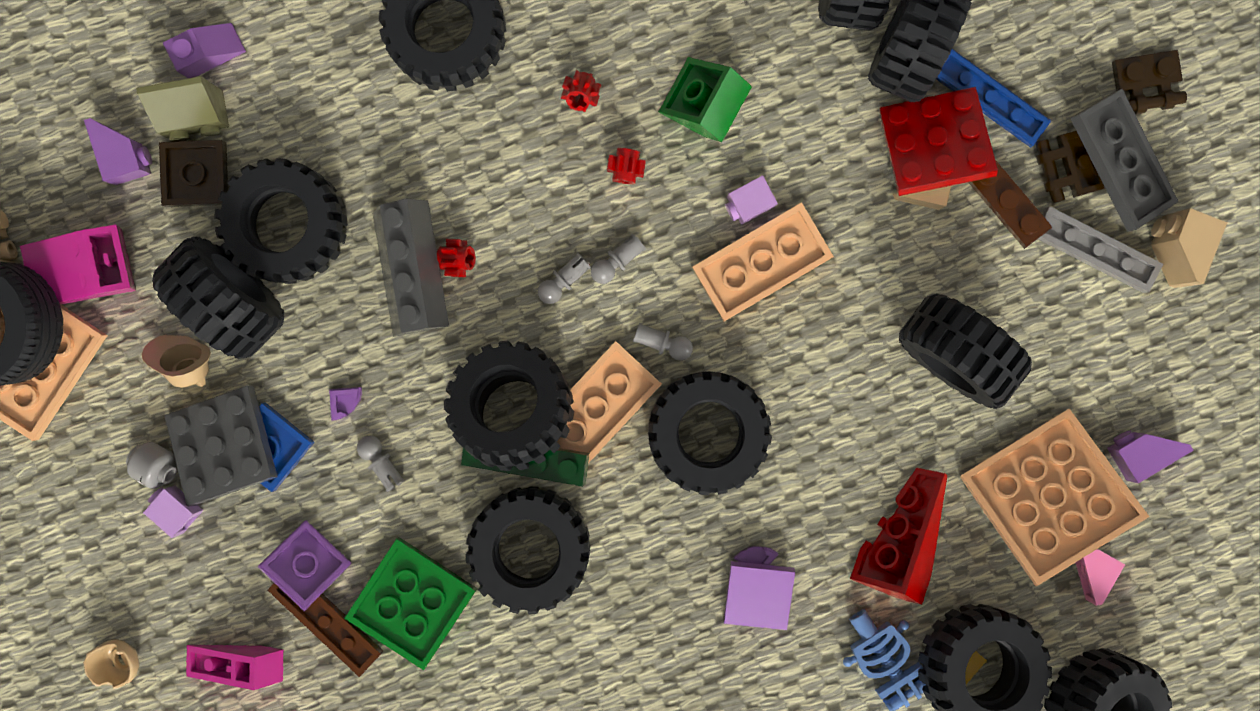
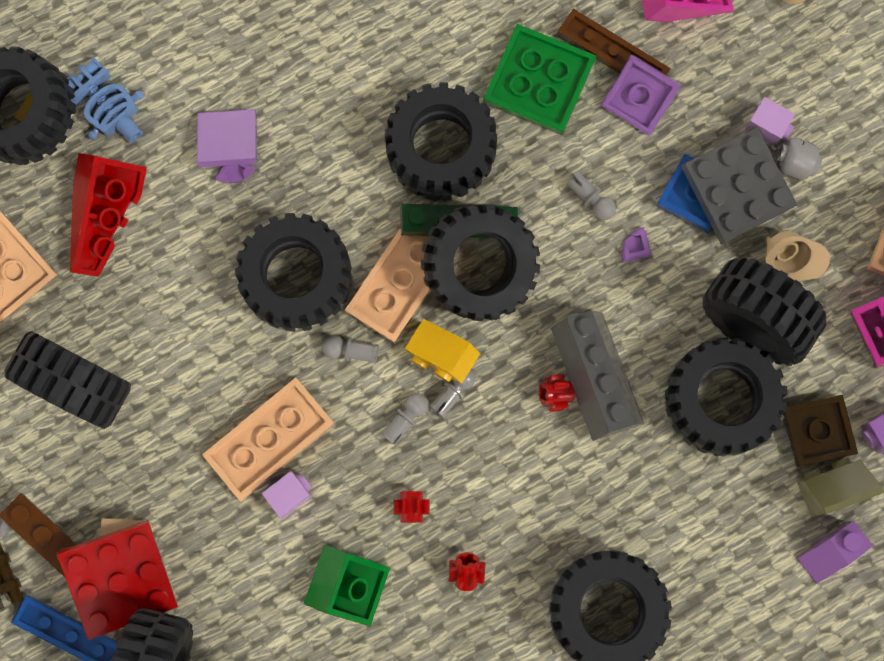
camera: 175 degrees right, 10 degrees down
(566, 320) = (442, 351): none -> yellow brick

